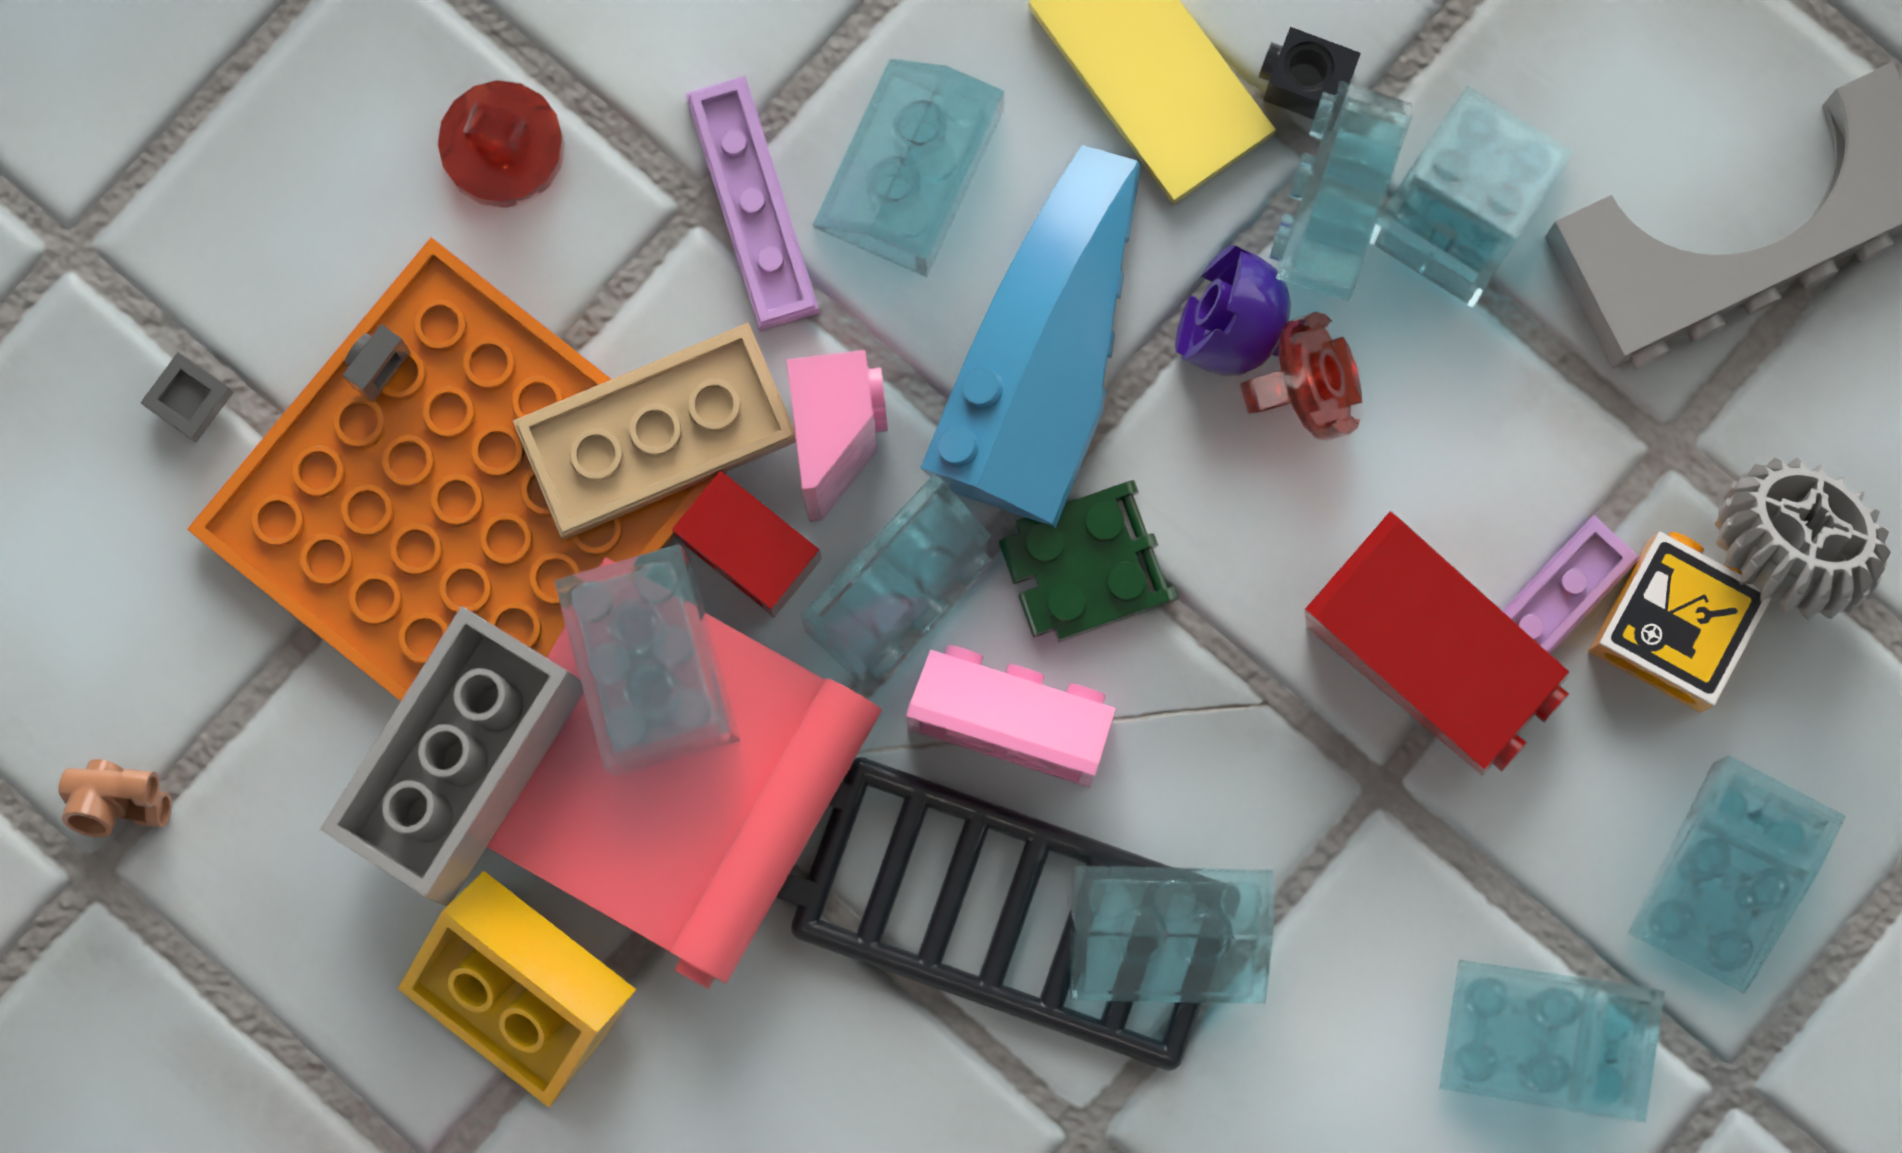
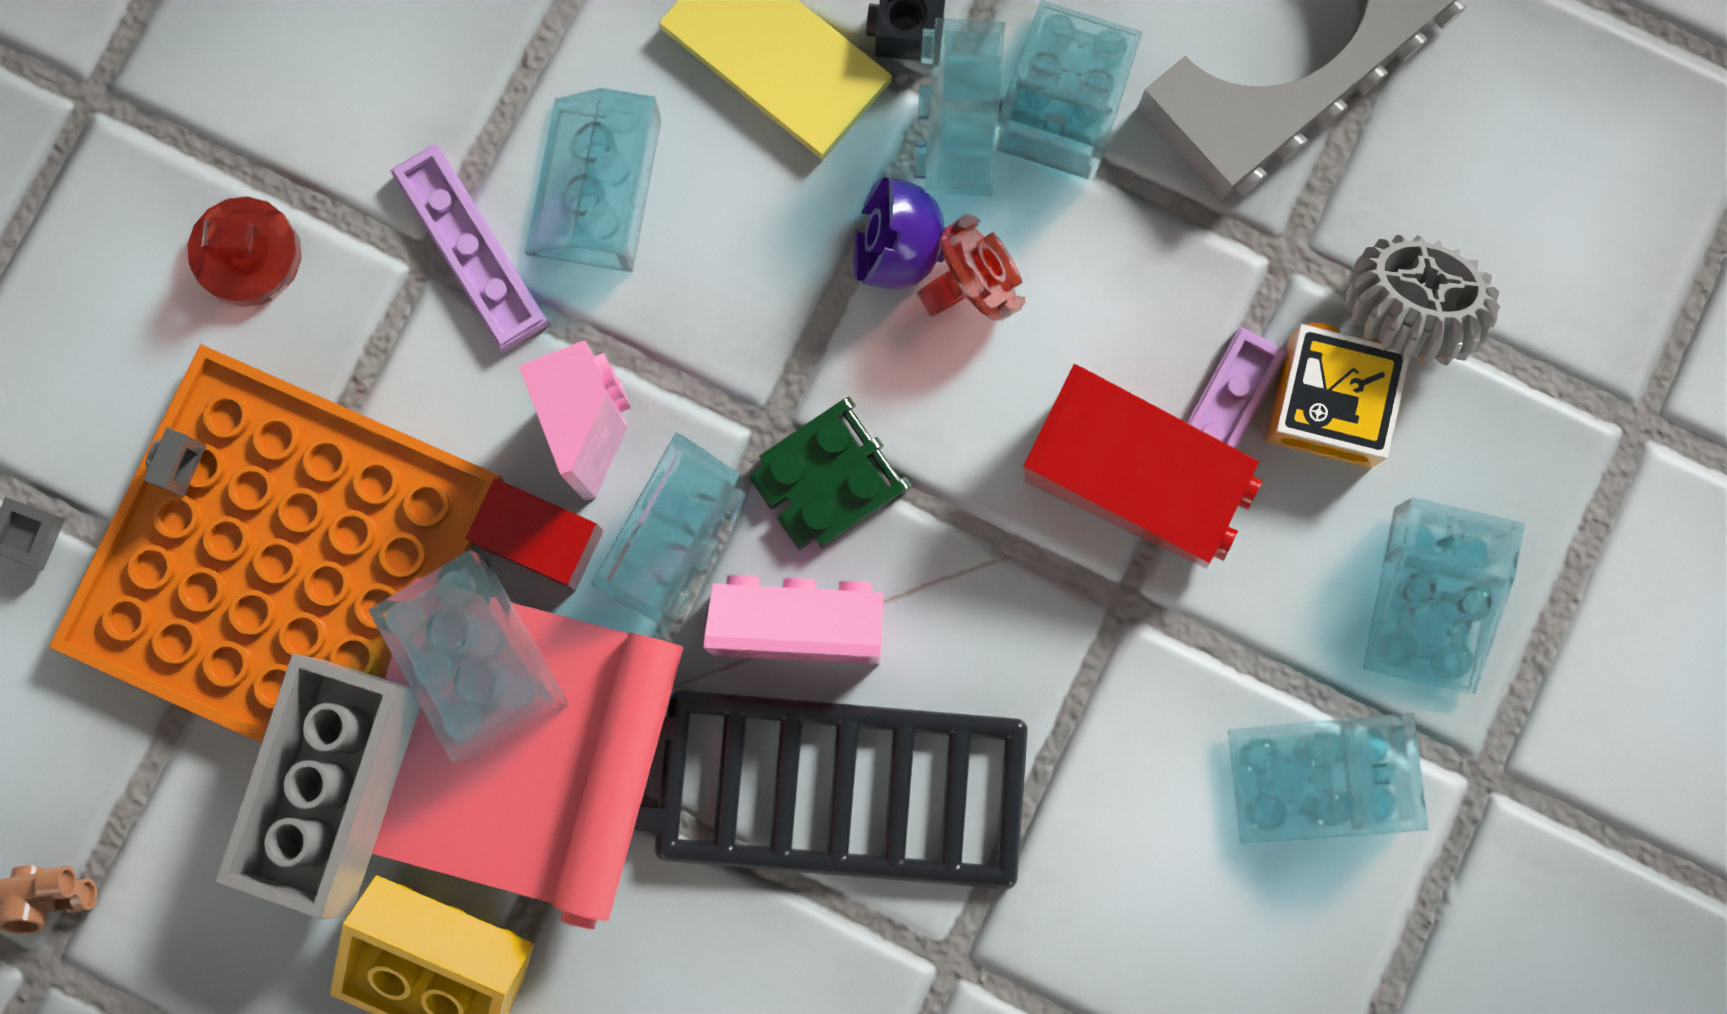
camera: 15 degrees left, 0 degrees up
(655, 431) = (430, 459): tan tile -> none
(1042, 350) = (741, 314): dark azure wedge -> none
(1171, 934) = (981, 774): clear light blue slope -> none

